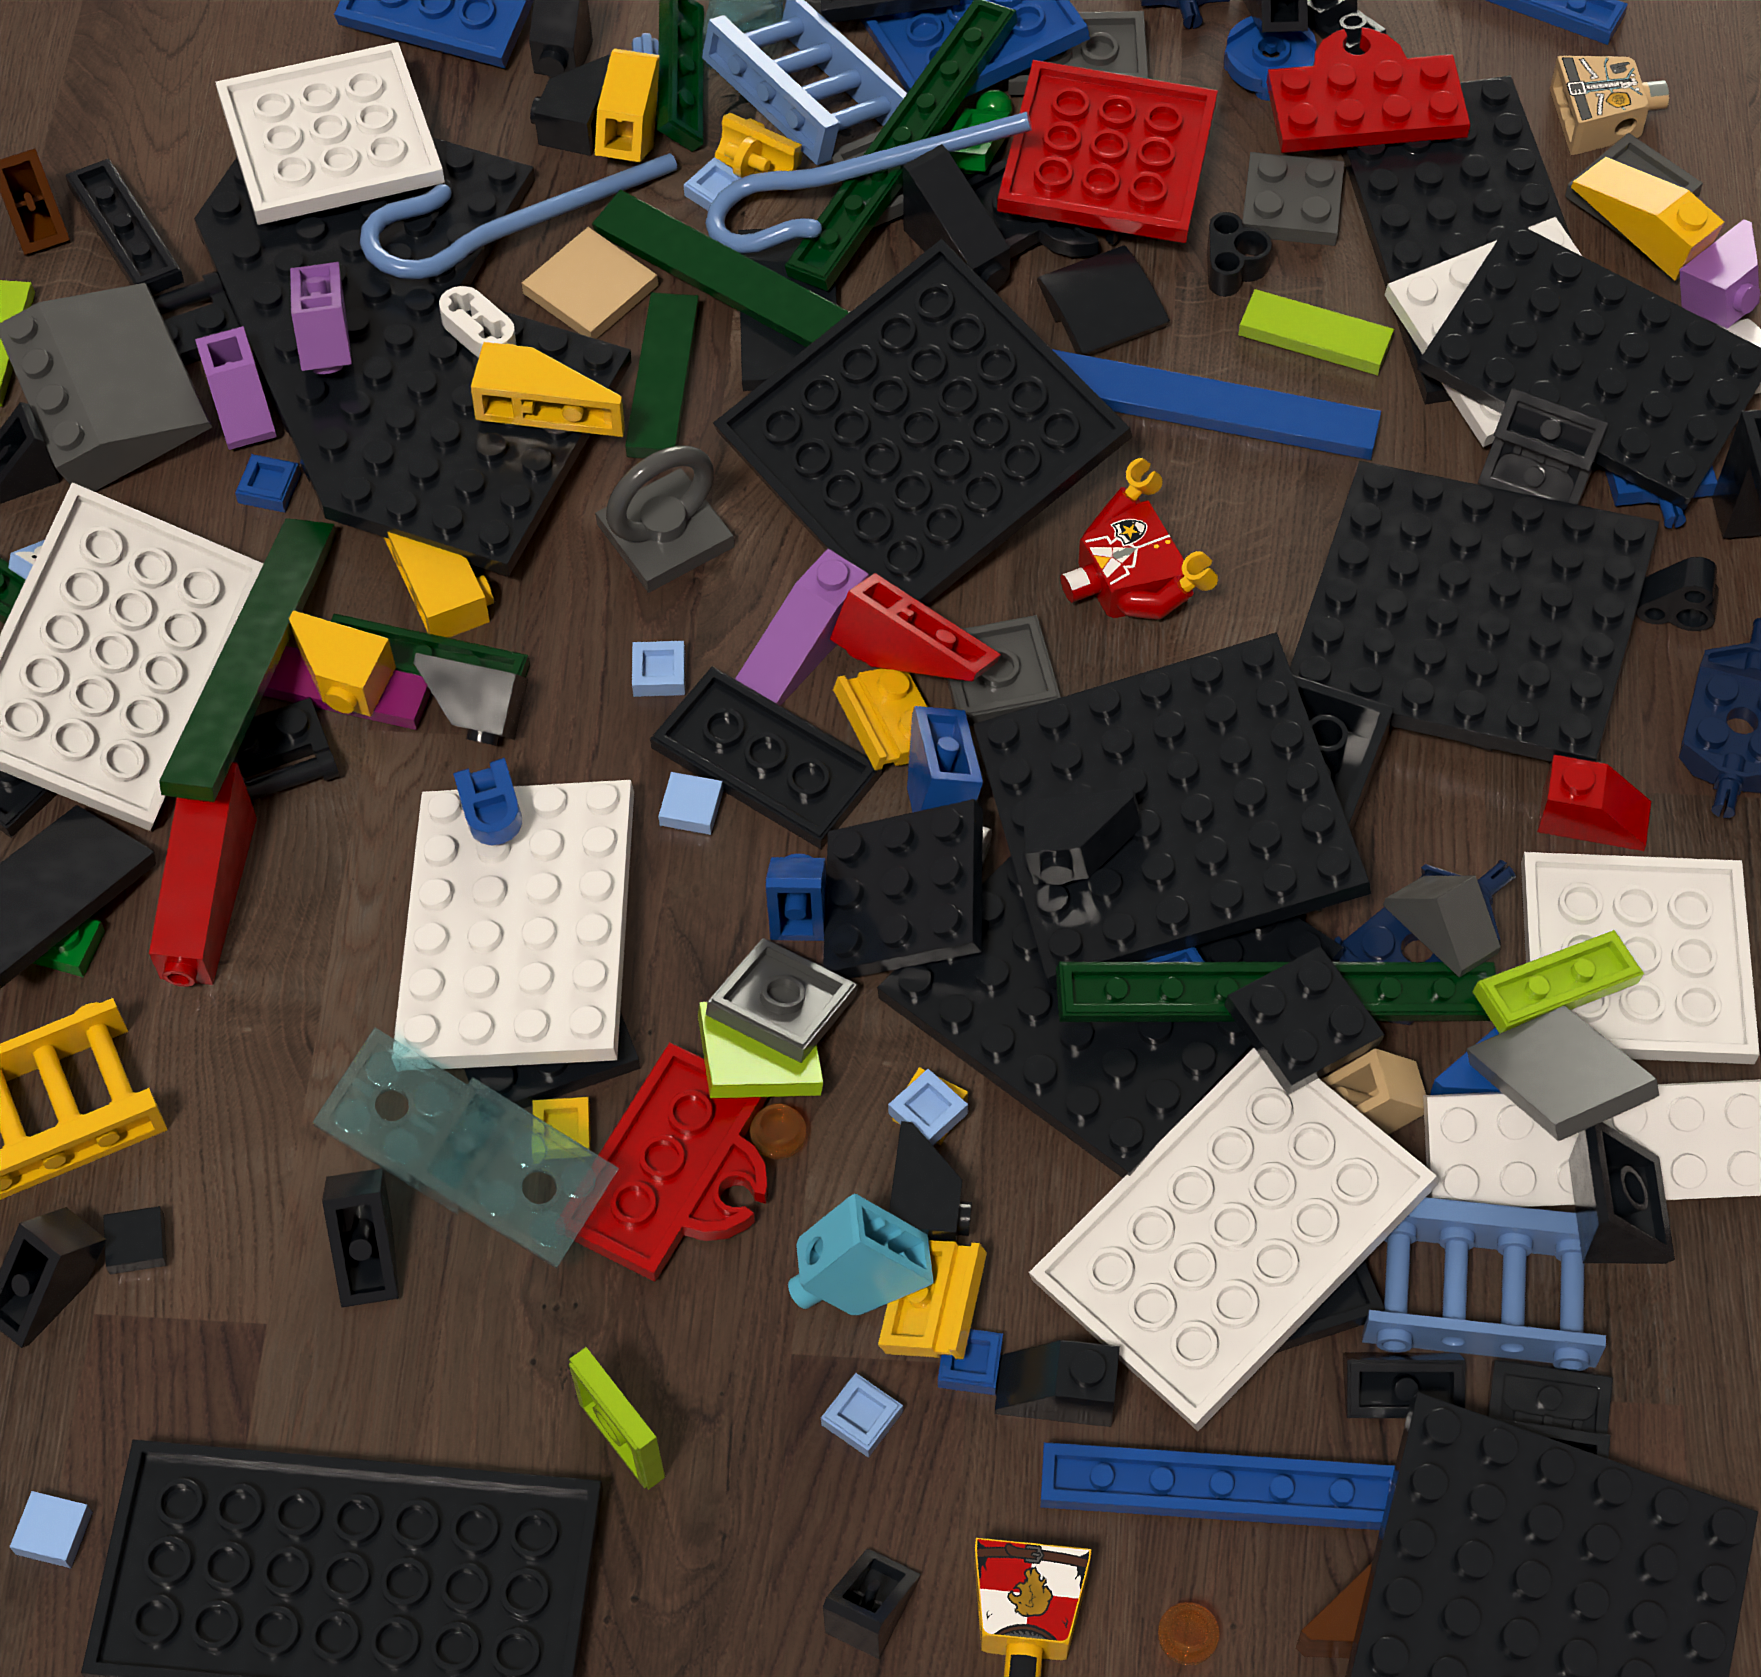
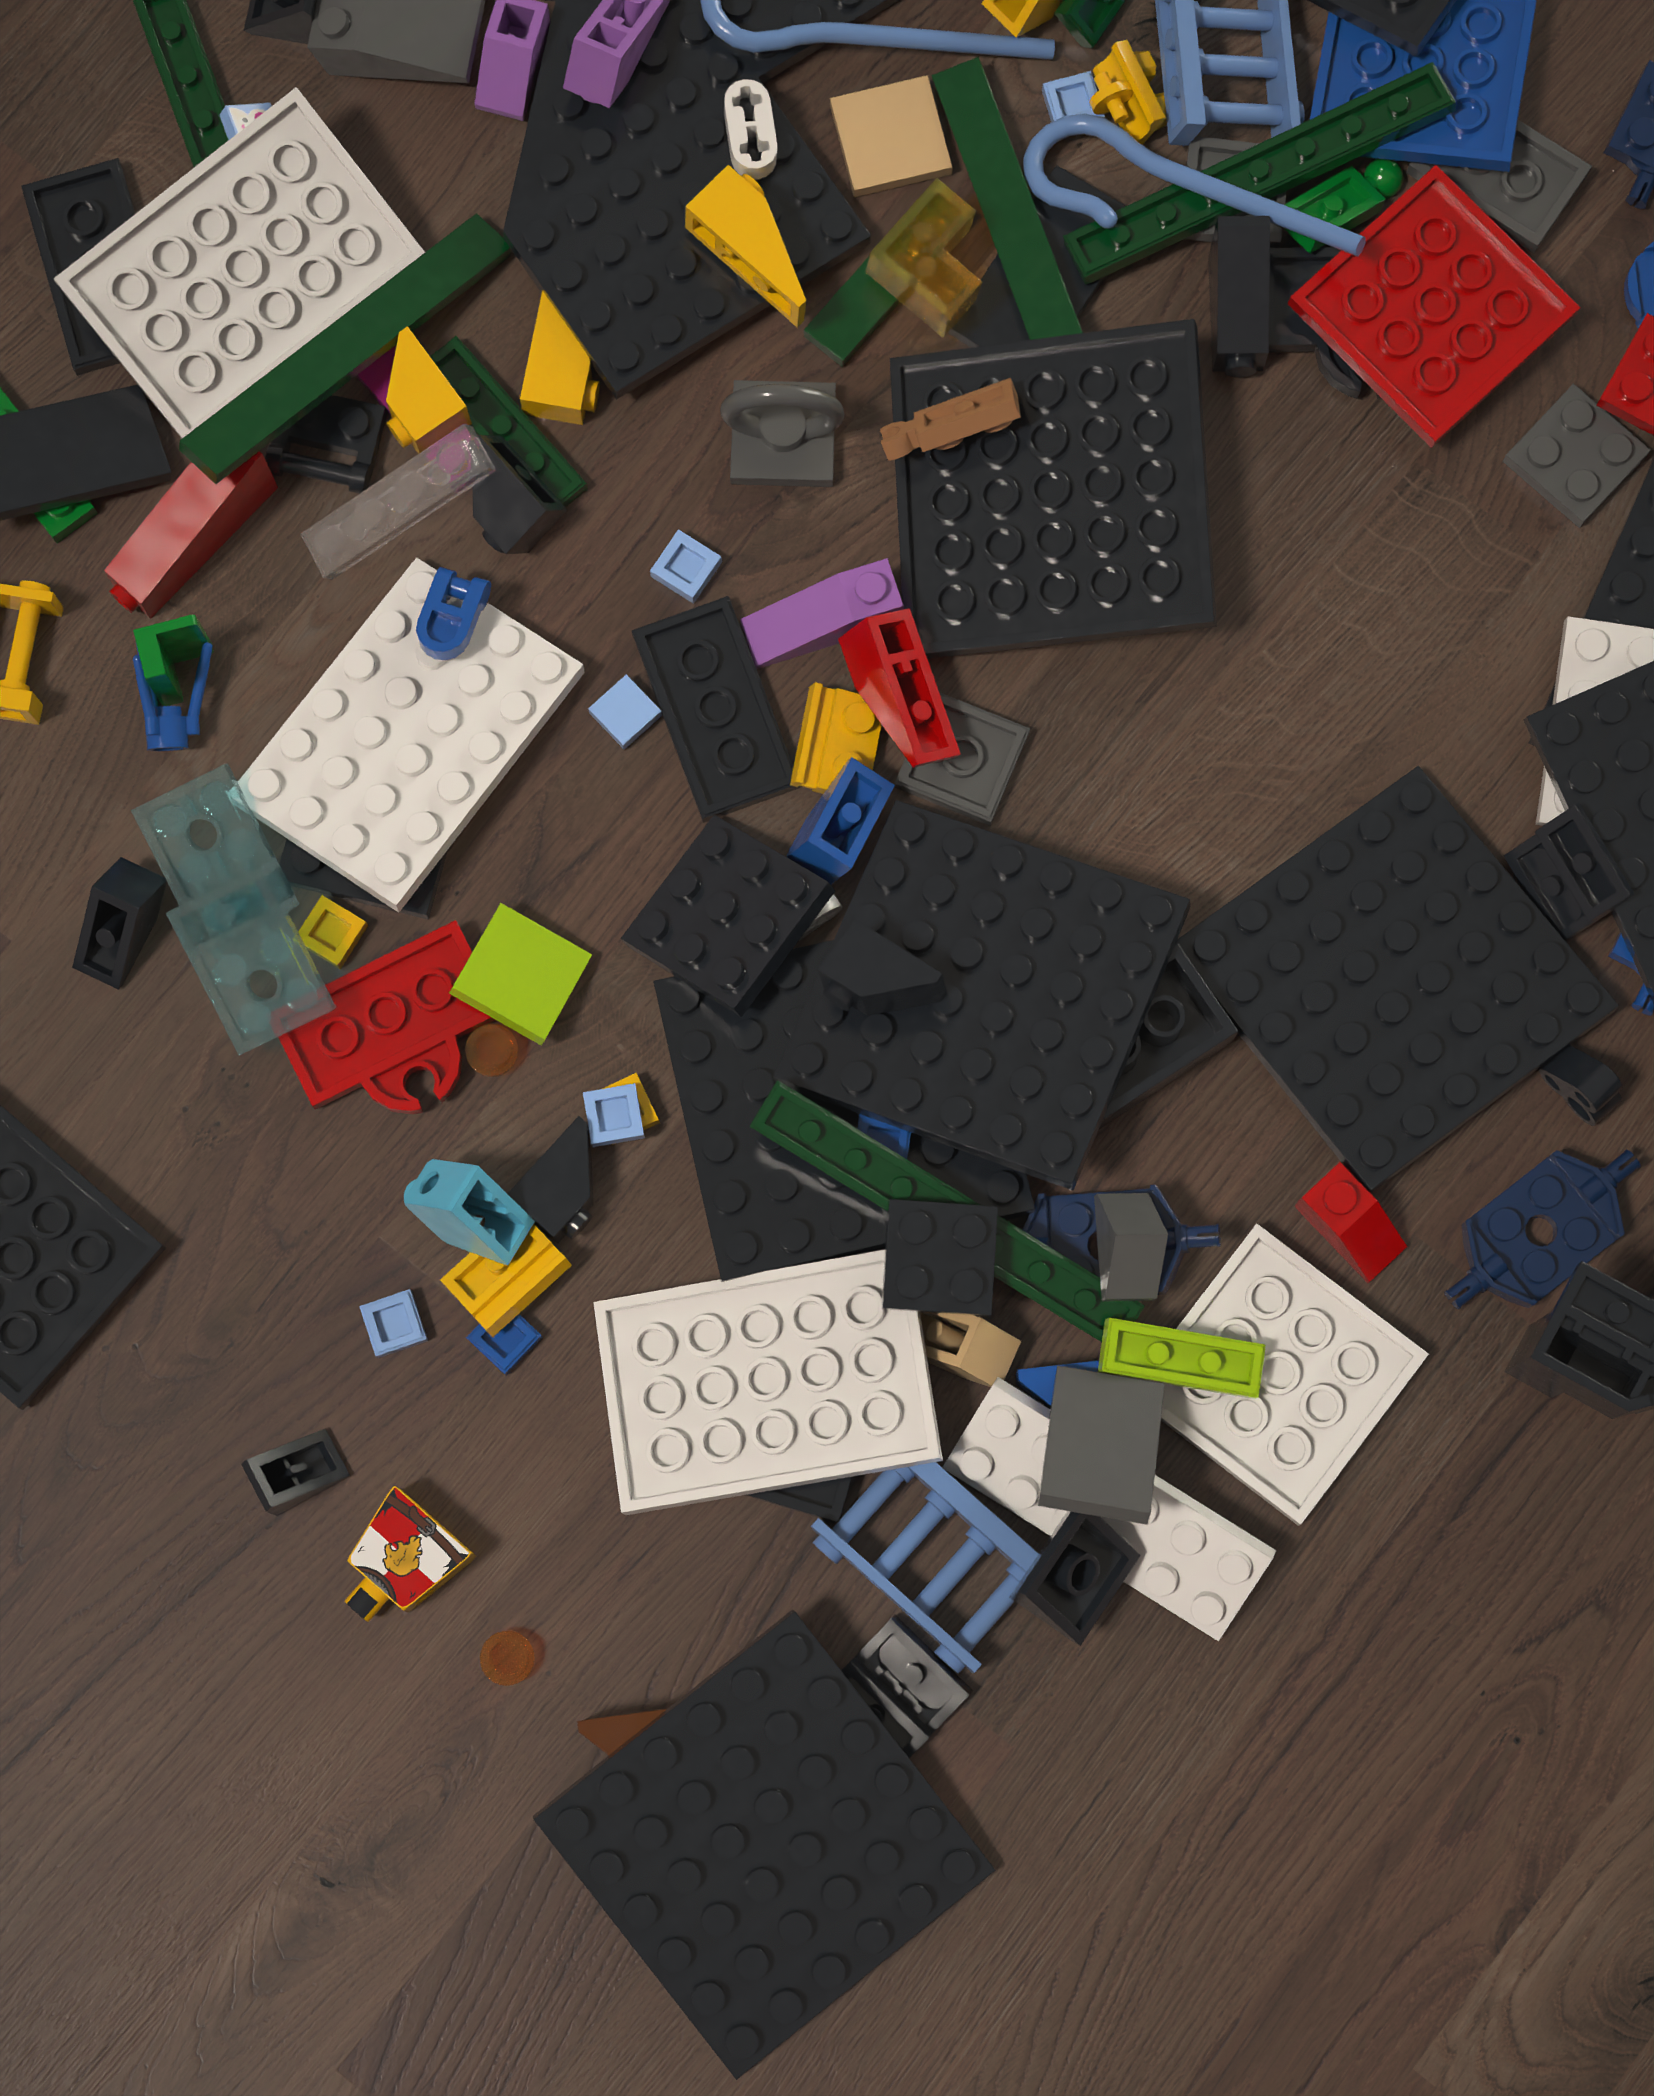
camera: 35 degrees right, 20 degrees up
(252, 977) = (162, 647): none -> green panel
(268, 483) = (486, 164): blue tile -> none
(289, 1049) = (165, 725): none -> blue plant
(377, 751) = (398, 501): none -> clear plate
(616, 1419) = (199, 1209): lime tile -> none
(692, 339) = (917, 263): none -> clear yellow brick
(781, 1000) = (566, 943): dark grey tile -> none
(796, 897) = (642, 857): blue slope -> none
(801, 426) = (953, 420): none -> medium nougat plate
(1059, 1383) = (551, 1405): black slope -> none
(1103, 301) = (1321, 453): black slope -> none
(1132, 559) = (1146, 732): red torso -> none
(1214, 1486) = (606, 1563): blue plate -> none
(1227, 250) = (1467, 473): black piece -> none
(1229, 406) = (1332, 614): blue tile -> none
(1316, 332) = (1486, 609): lime tile -> none
(1387, 1381) = (814, 1585): black slope -> none

